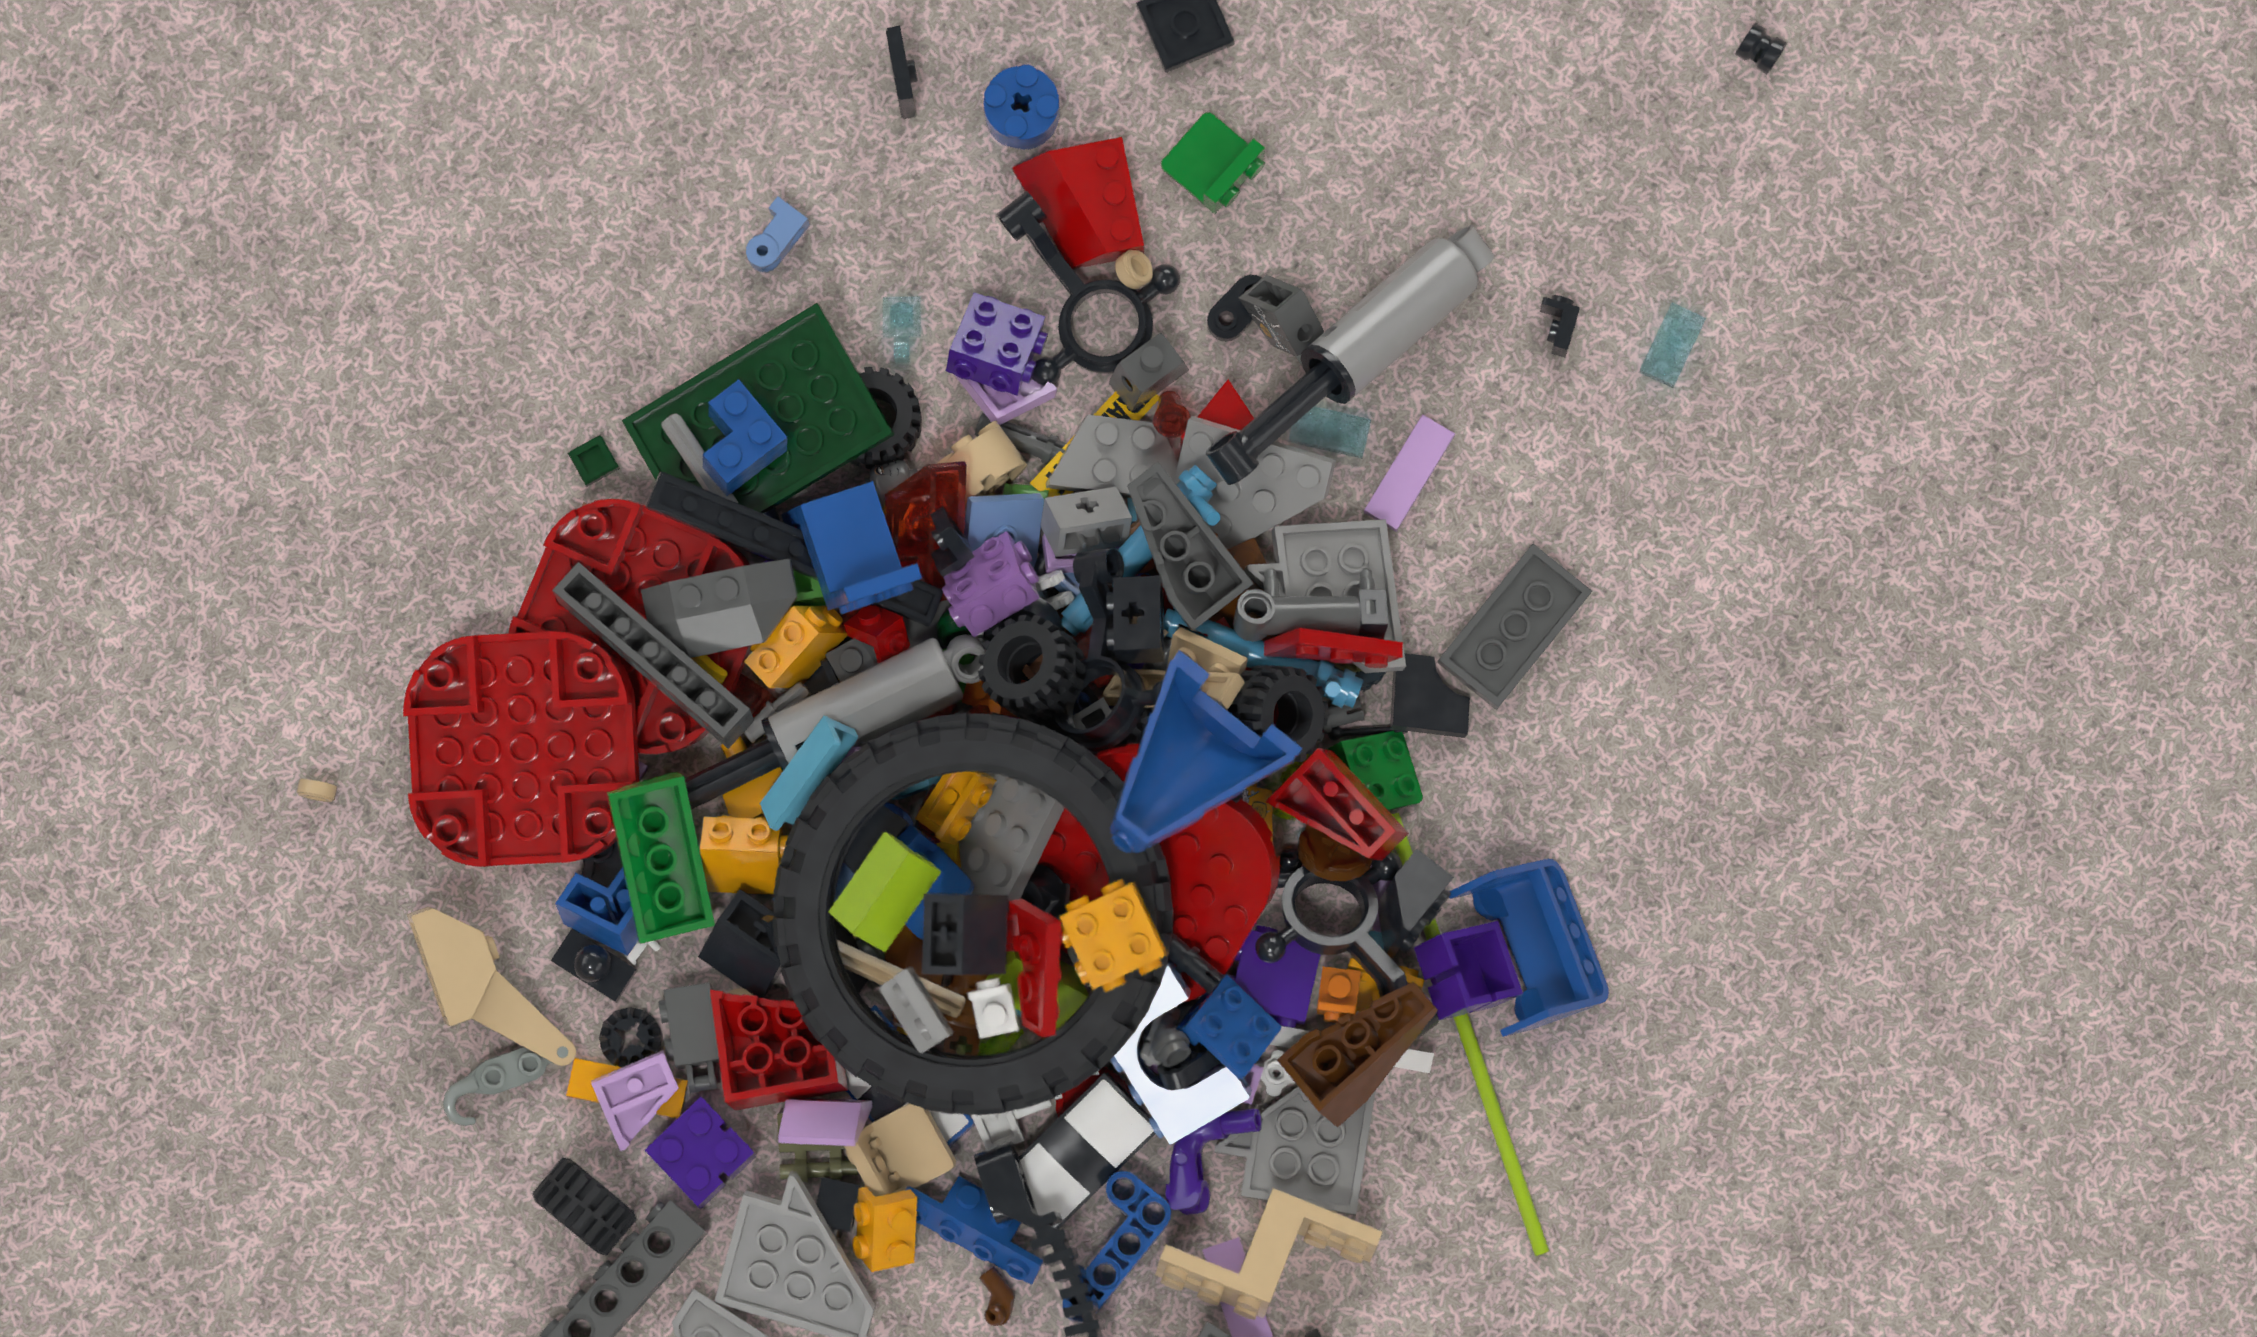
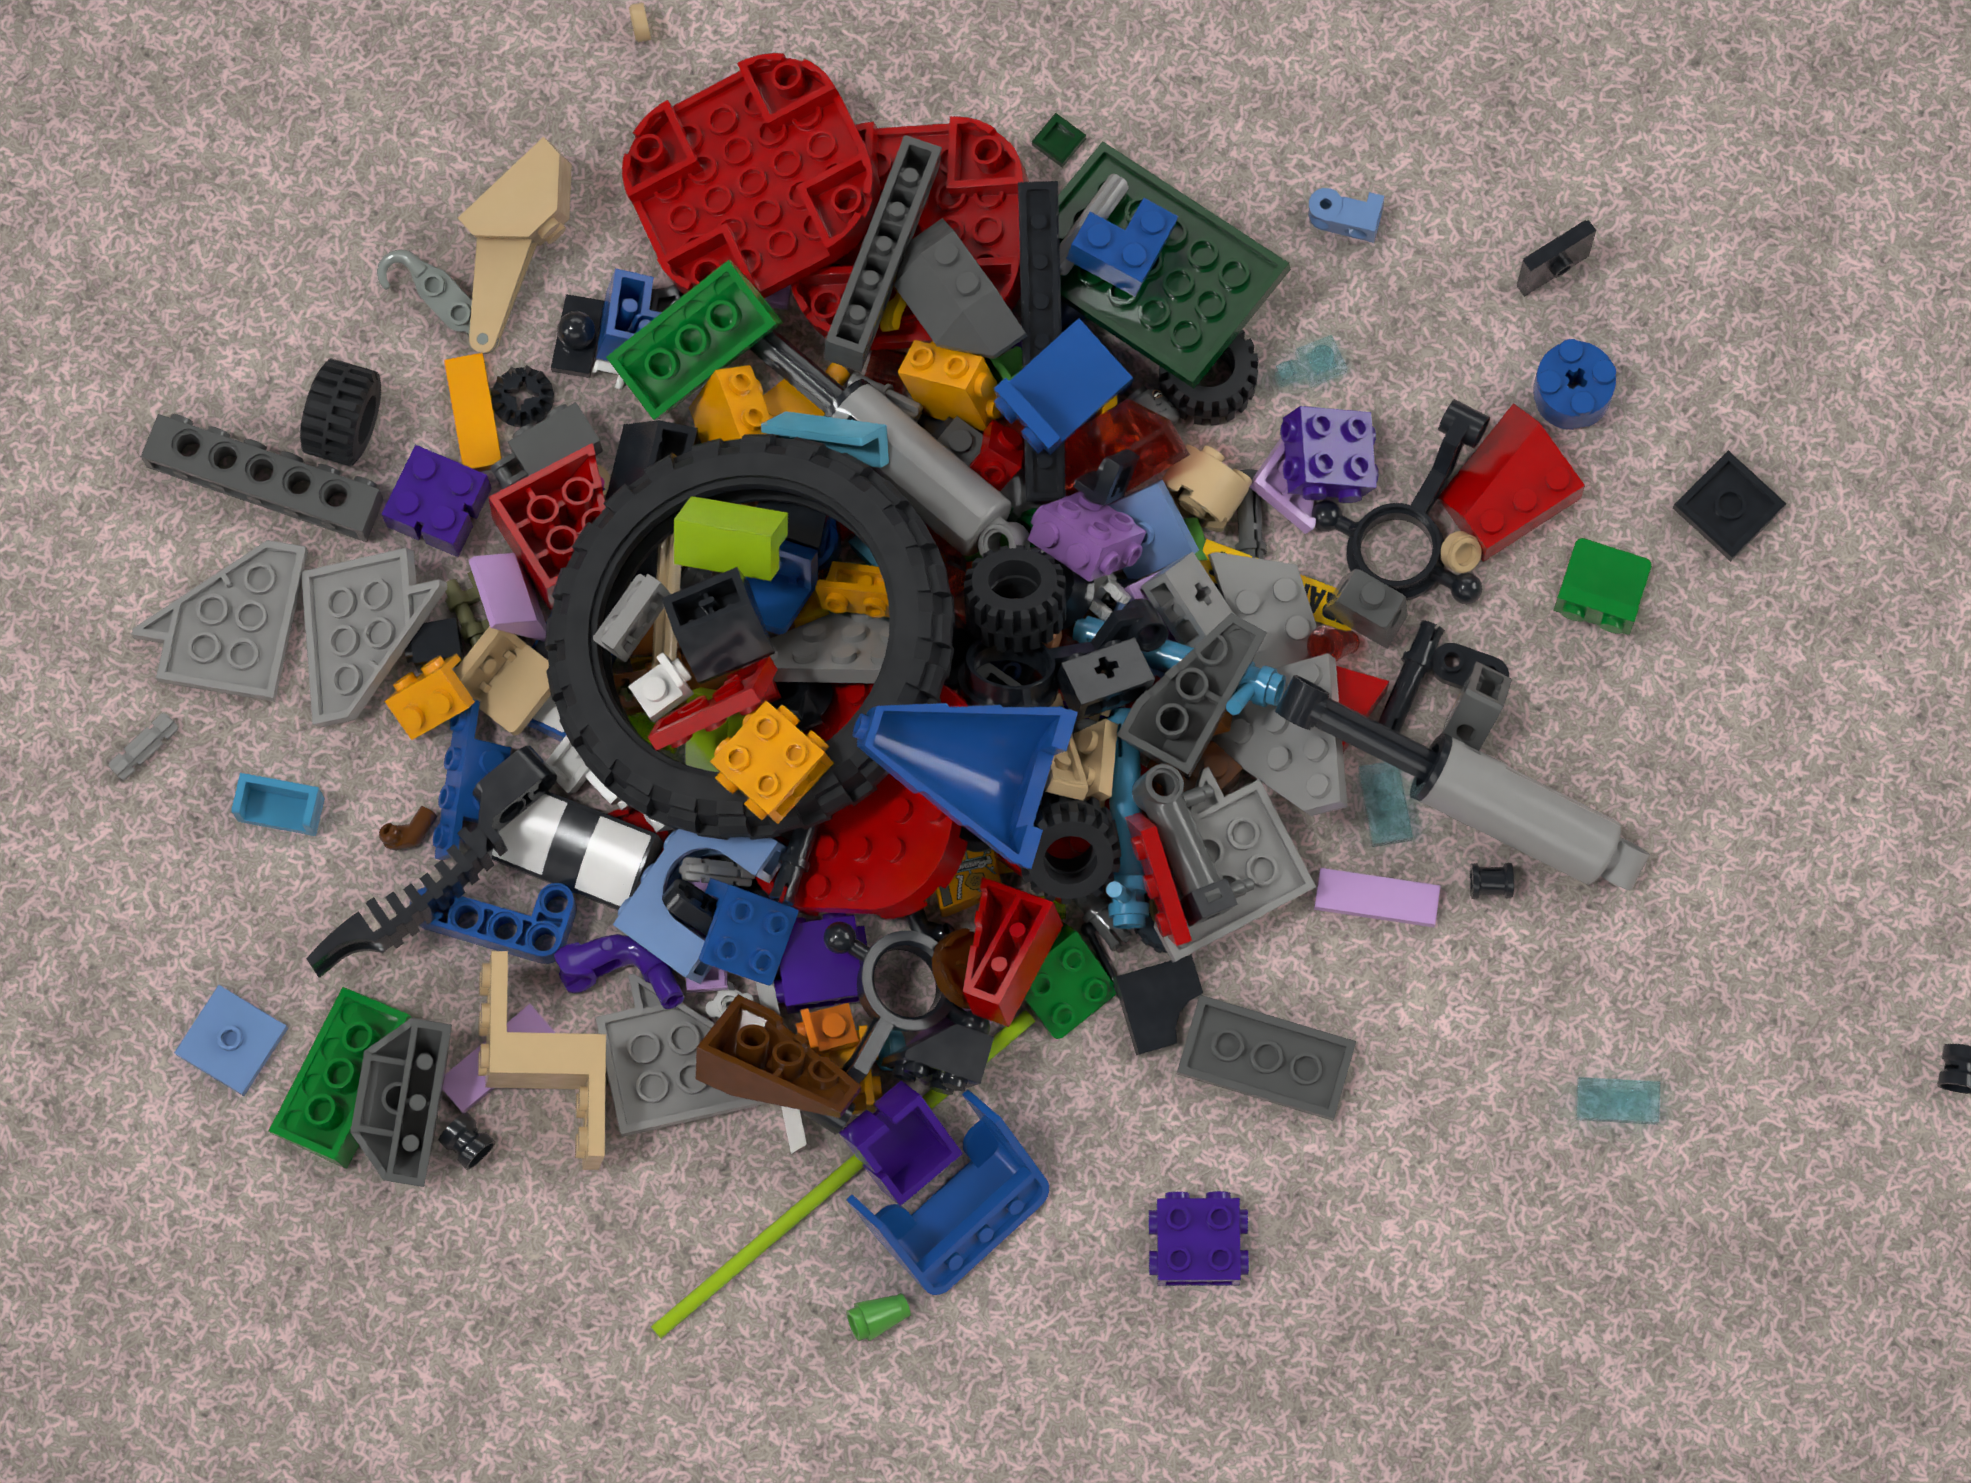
camera: 70 degrees right, 5 degrees down
(634, 1095) = (465, 417): lavender wing -> none
(1170, 1046) = (702, 879): dark grey plate -> none
(1220, 356) = (1416, 663): none -> black pin
(1436, 369) = (1491, 880): none -> black bush
(1560, 331) = (1584, 987): black bracket -> none
(1606, 1054) = (876, 1316): none -> bright green cone
(1651, 750) = (1198, 1240): none -> dark purple brick

